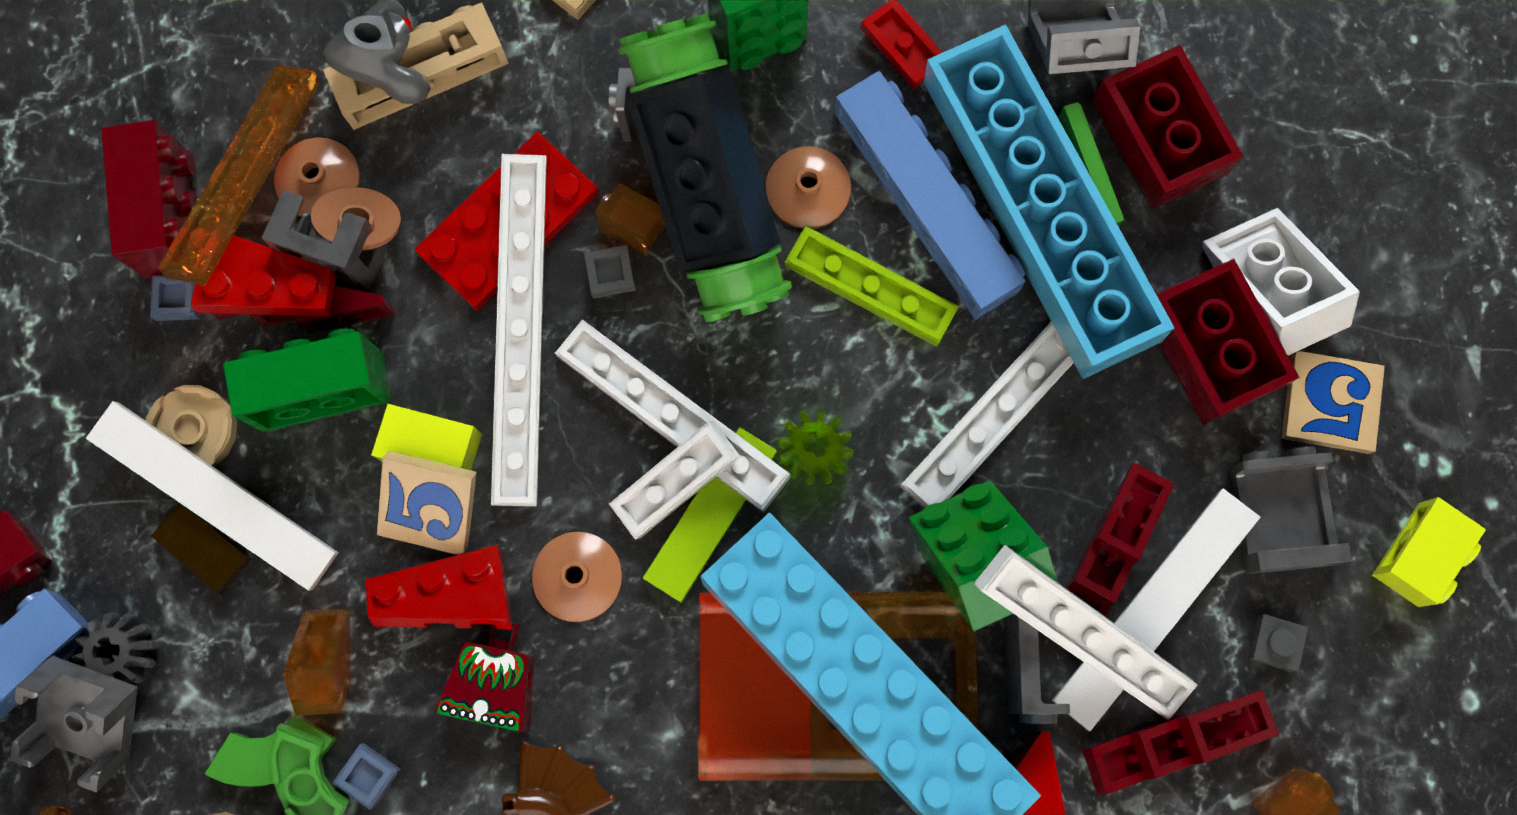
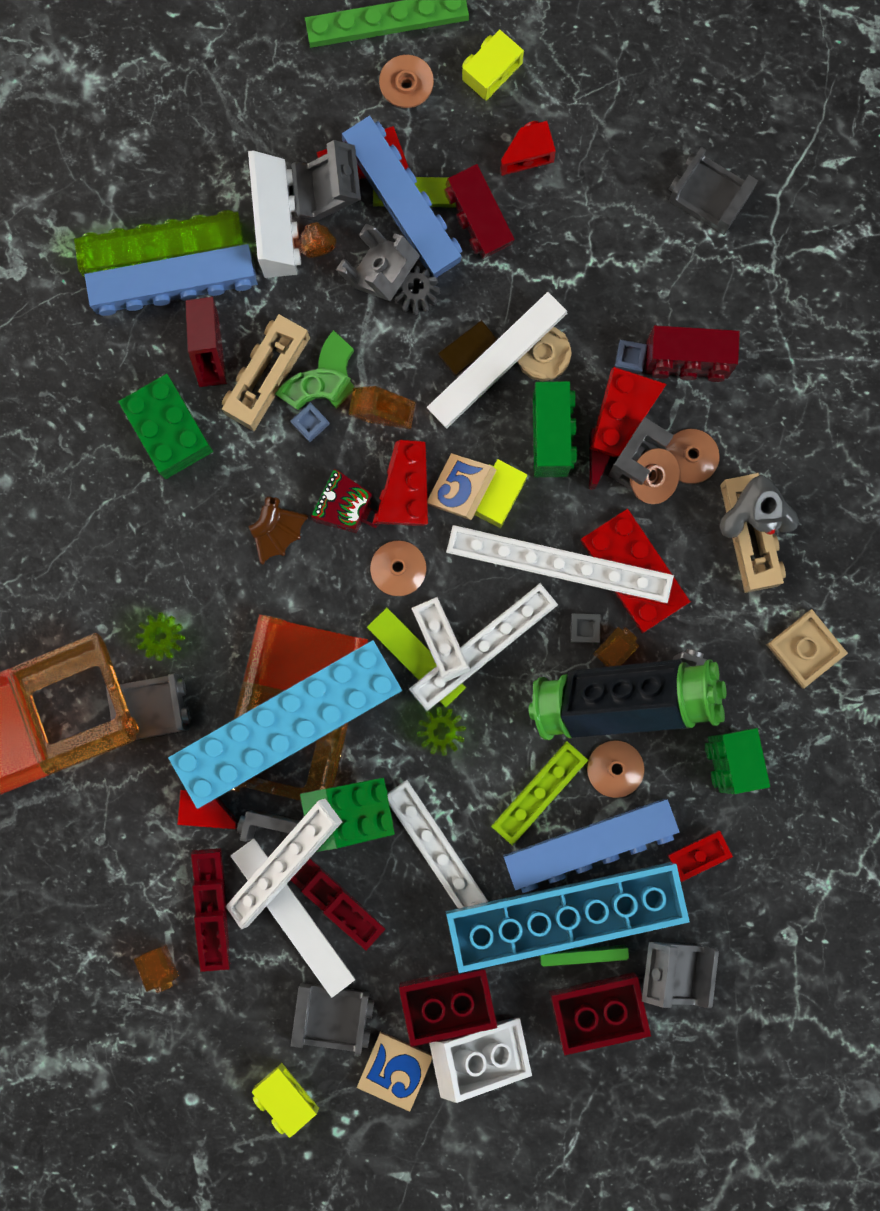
camera: 105 degrees right, 5 degrees up
(239, 176) = (697, 410): clear orange plate -> none
(1278, 643) = (254, 988): dark grey plate -> none

